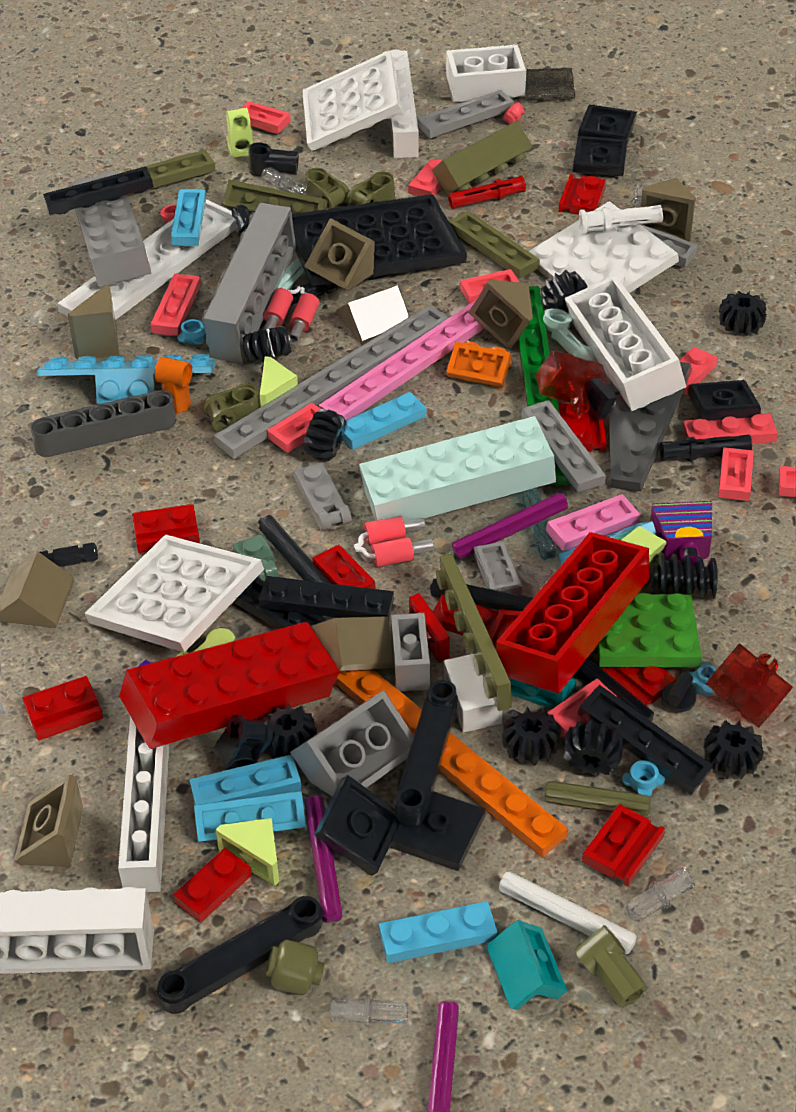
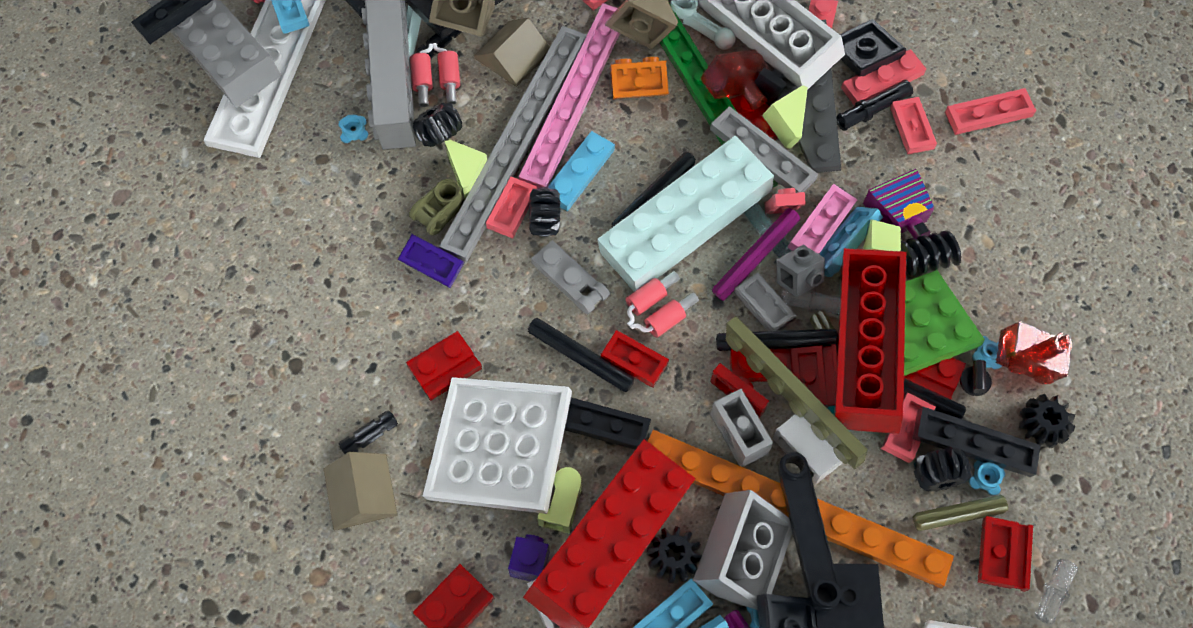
camera: 25 degrees left, 20 degrees up
(94, 326) = (261, 160): dark tan slope -> none
(103, 423) = (321, 281): dark grey beam -> none
(120, 377) = (317, 204): medium azure bracket -> none
(175, 304) = (320, 101): coral plate -> none
(175, 378) = (375, 201): orange piece -> none
(201, 445) = (431, 260): none -> dark purple plate
(243, 741) = (648, 587): black piece -> none
(258, 548) = (542, 364): sand green plate -> none
(324, 598) = (639, 398): black plate -> none
(357, 642) = (689, 437): dark tan slope -> none
(531, 736) = (892, 477): black gear -> none
(542, 544) = (800, 270): none -> dark grey brick
(562, 482) = (784, 199): none -> coral plate
(603, 422) = (787, 117): none -> yellowish green slope

